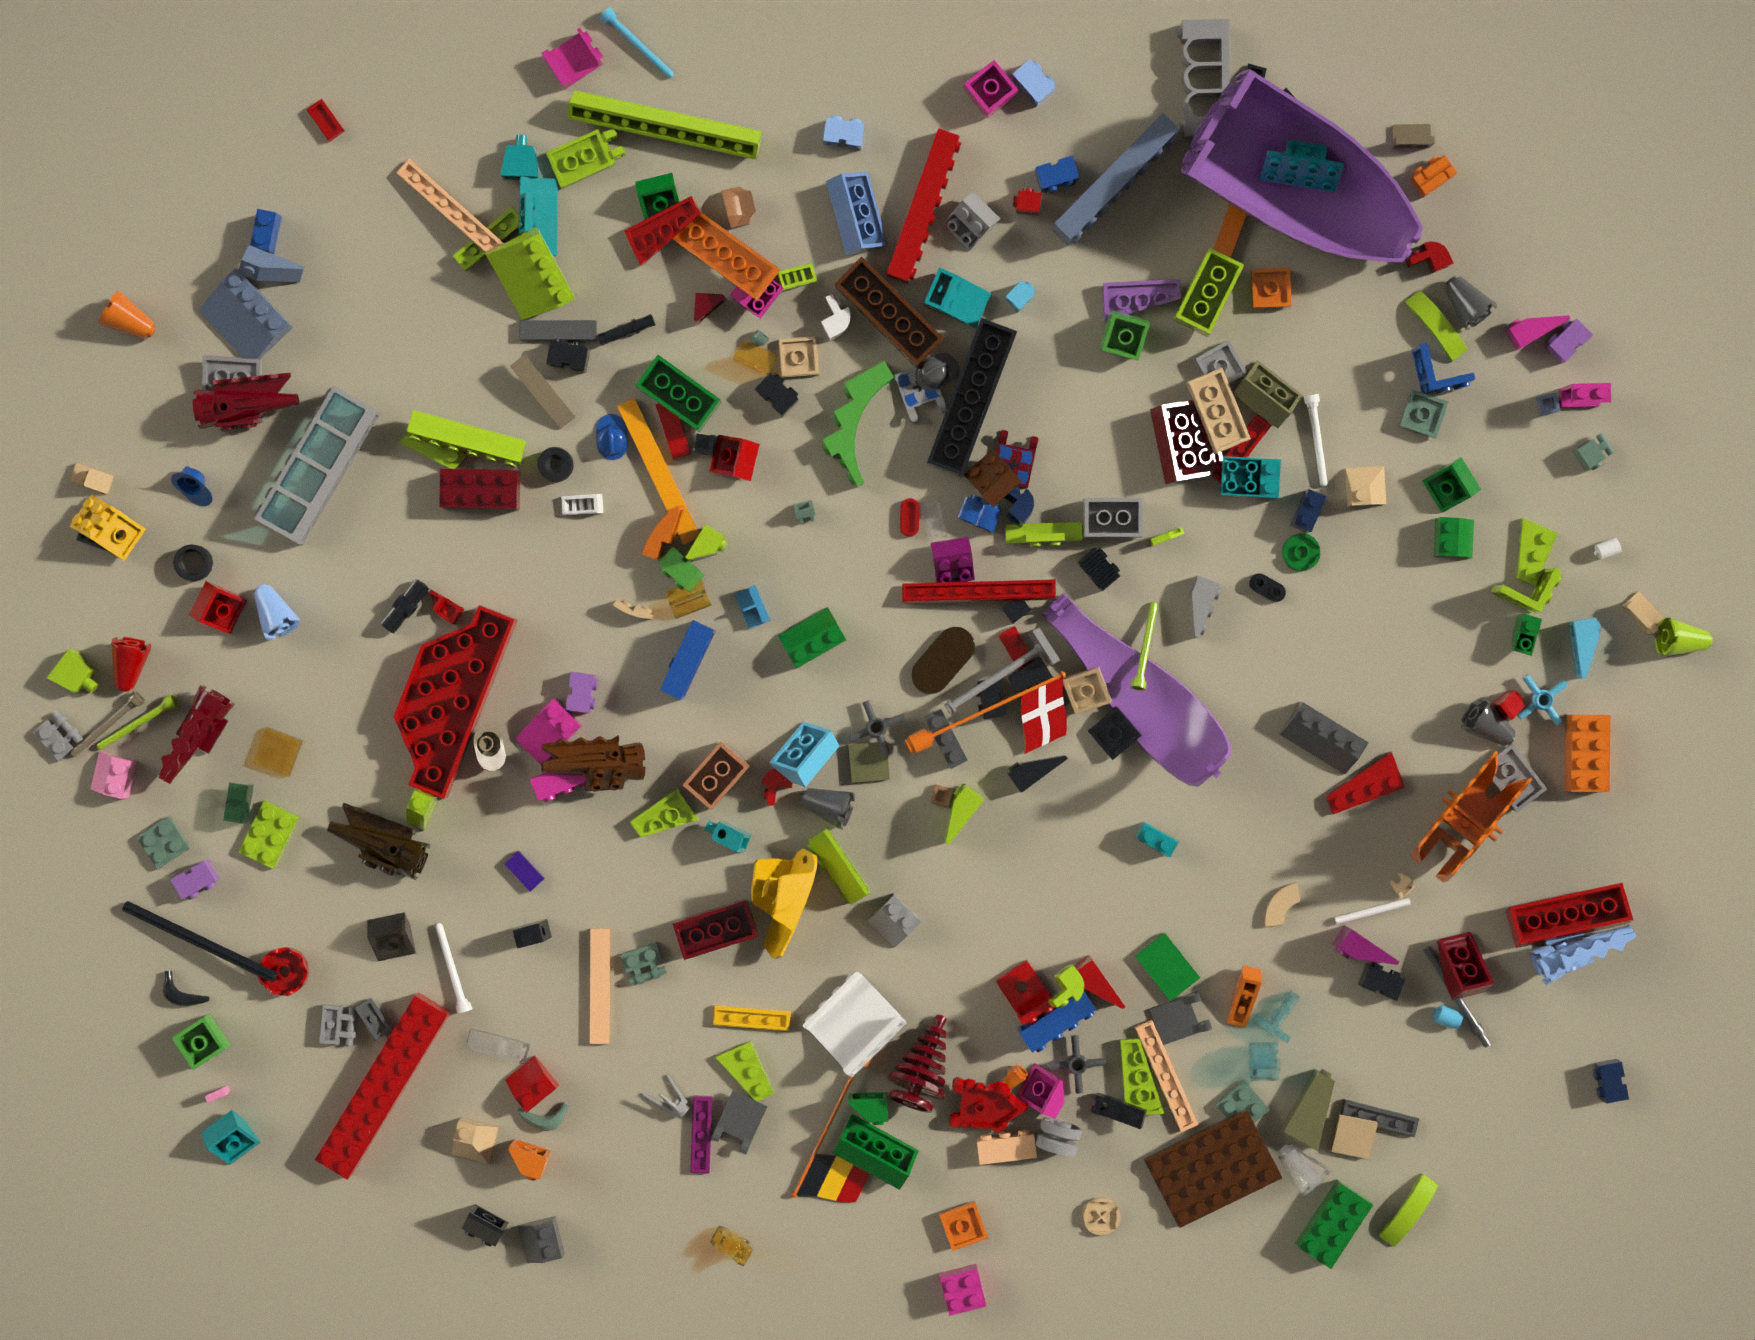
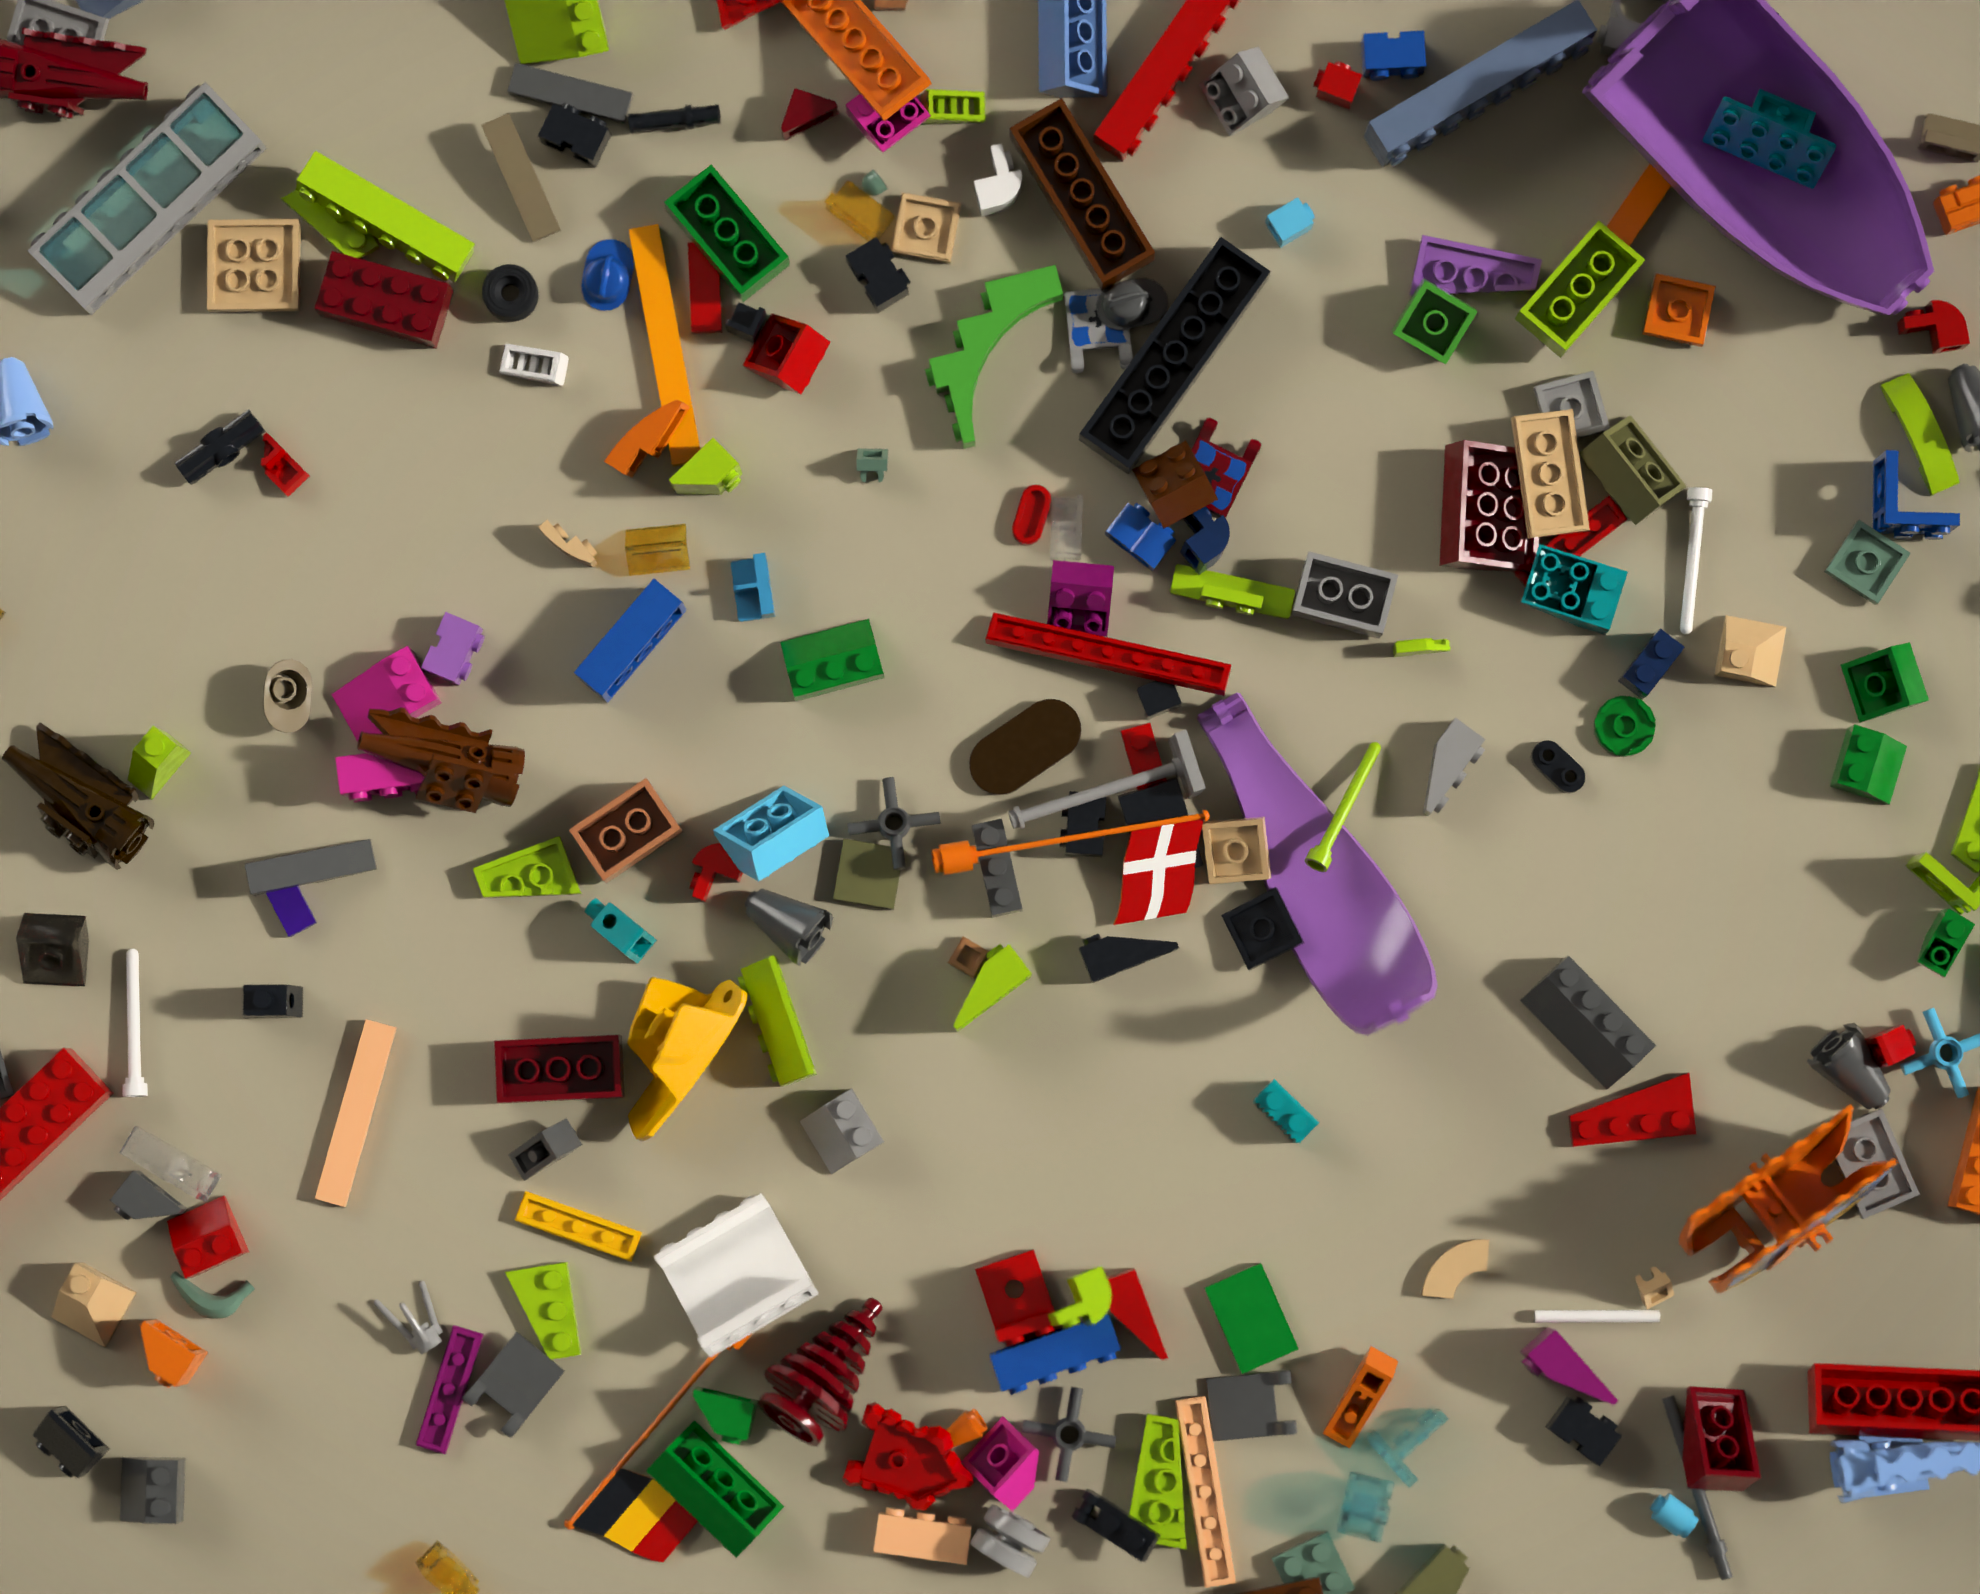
camera: 15 degrees right, 5 degrees down
(394, 488) = (253, 265): none -> tan plate
(448, 696) = (247, 600): red brick -> none
(488, 1071) = (143, 1199): none -> dark grey slope
(532, 846) = (310, 867): none -> dark grey slope
(641, 958) = (433, 1086): sand green plate -> none
(681, 569) = (658, 501): bright green brick -> none
(719, 978) = (545, 1149): none -> dark grey slope
(957, 298) = (1191, 199): teal slope -> none
(1099, 569) = (1303, 668): black brick -> none

